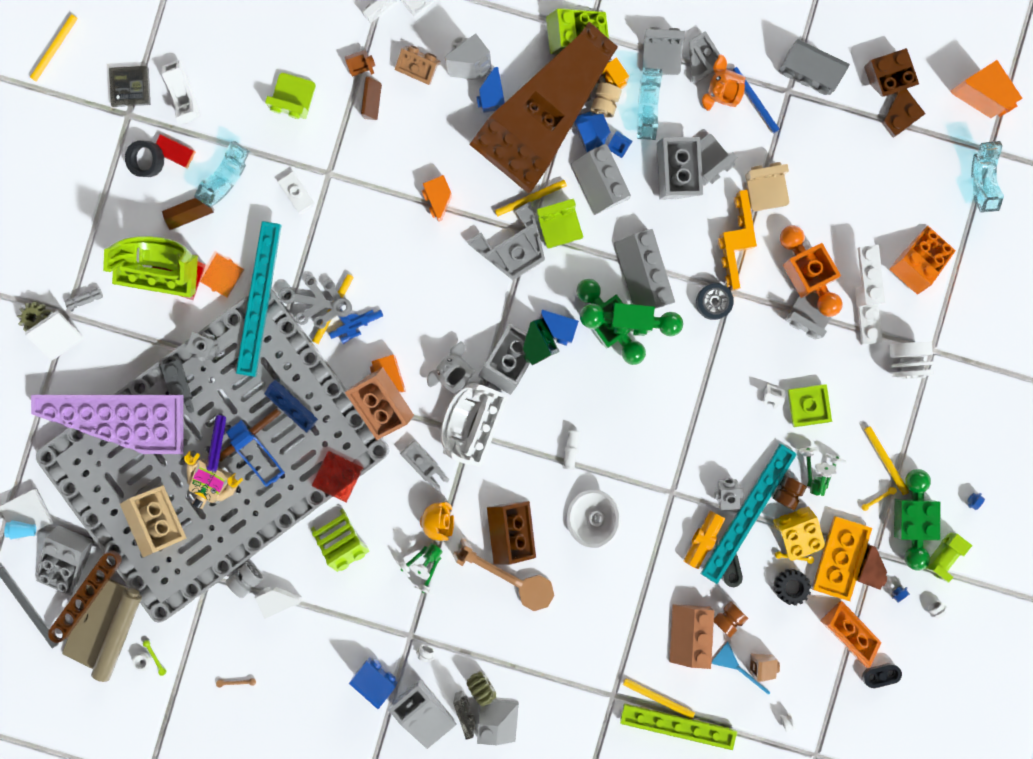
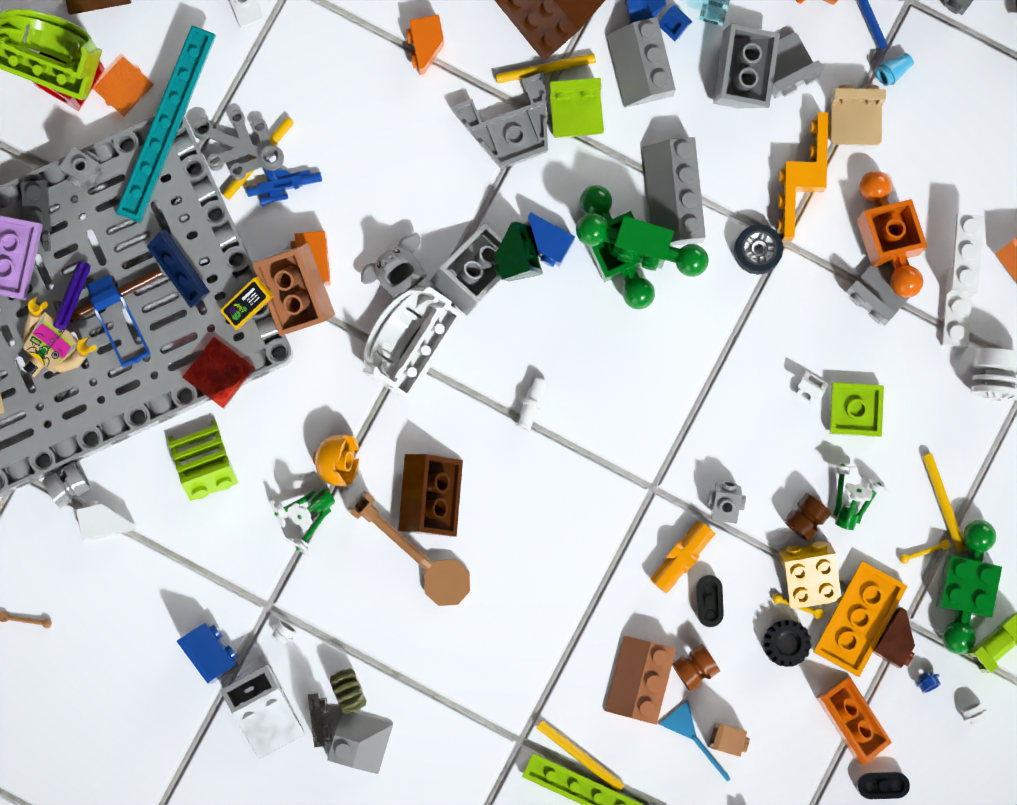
camera: 10 degrees right, 5 degrees down
(347, 421) = (246, 303): none -> tile
(423, 464) = (333, 382): light grey hinge -> none
(584, 514) = (532, 490): white dish -> none
(748, 514) = (747, 534): teal tile -> none
(787, 147) = (891, 71): none -> medium azure cone

